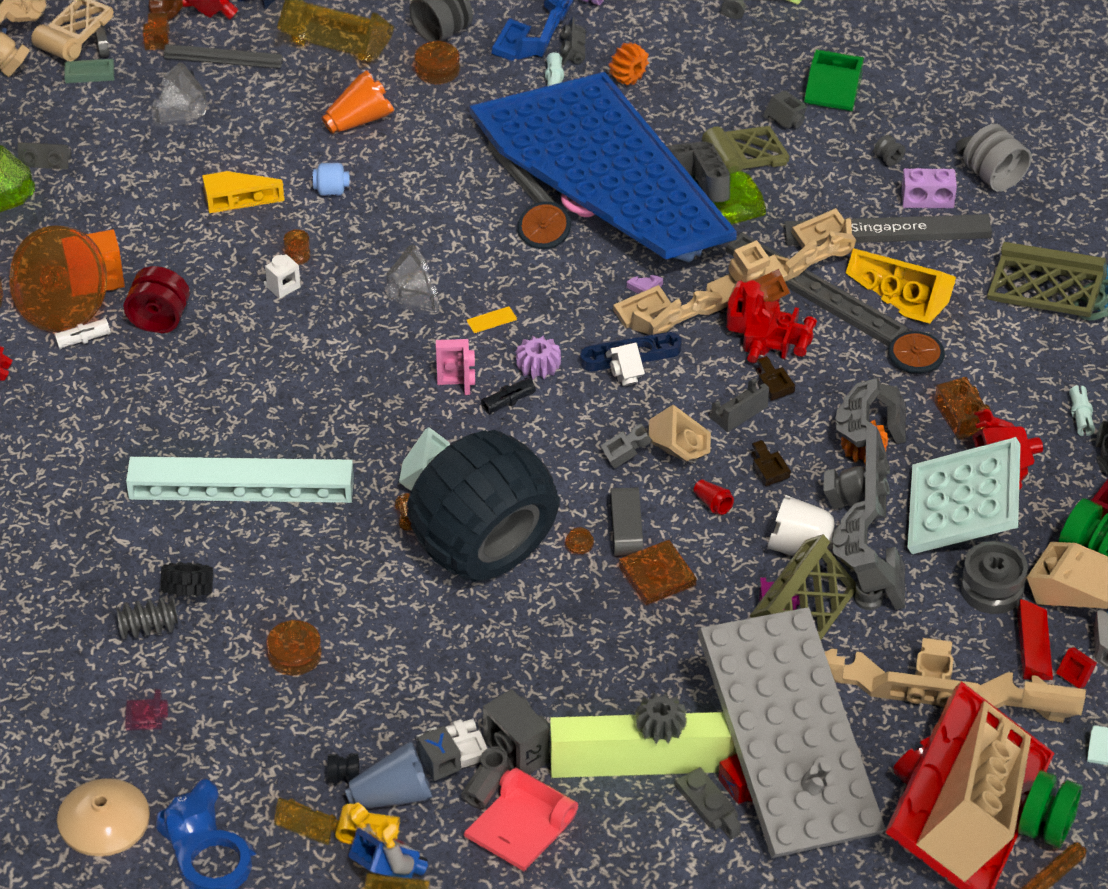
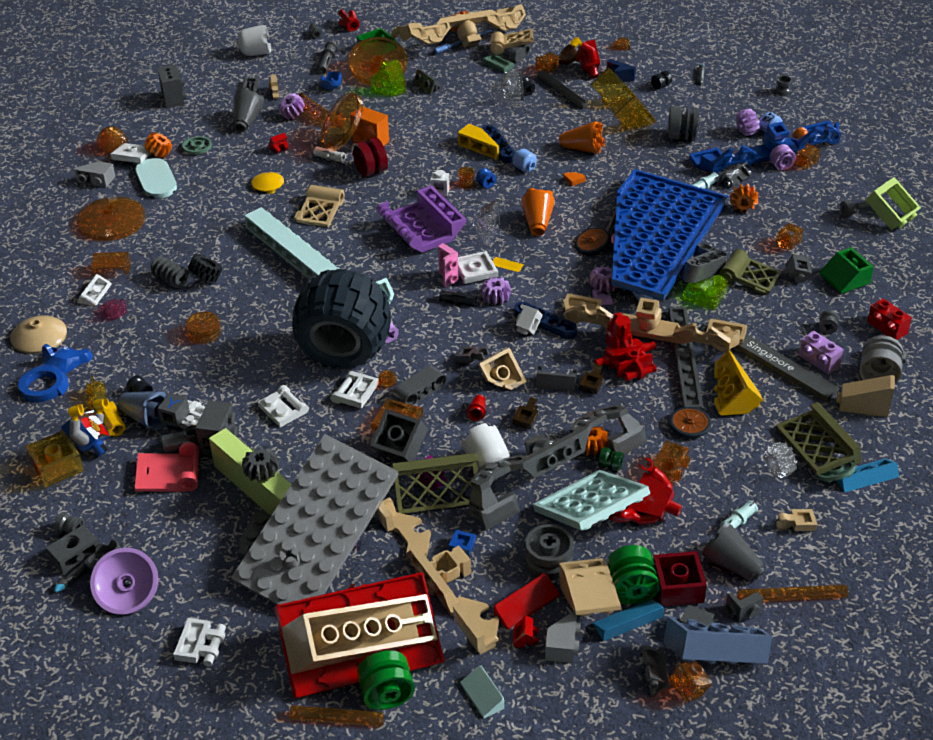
camera: 50 degrees right, 5 degrees down
(50, 664) = (111, 260): none -> clear orange hinge
(61, 424) = (267, 182): none -> yellow dish
(80, 715) = (94, 291): none -> white slope
(172, 391) = (322, 197): none -> tan piece
(293, 184) = (505, 153): none -> dark blue beam
(319, 231) = (485, 178): none -> blue wheel
(339, 329) = (425, 222): none -> medium lavender slope
(408, 163) = (574, 178): none -> orange tile
(437, 62) = (653, 145): clear orange head -> none
(445, 231) = (537, 208): none -> orange cone
(483, 340) = (476, 267): none -> white plate
(521, 665) = (278, 410): none -> white plate
(573, 572) = (358, 393): none -> white plate
(624, 260) = (601, 279): none -> lavender gear
(705, 584) = (399, 436): none -> dark grey brick
(728, 85) = (789, 241): none -> clear orange brick
(773, 286) = (647, 333): dark orange plate -> none
(904, 637) = (464, 540): none -> blue plate
(909, 445) = (611, 459): none -> dark green wheel
(937, 107) = (889, 319): none -> red brick
(1031, 202) = (867, 396): none -> tan slope
(1048, 325) = (780, 459): none -> clear gear

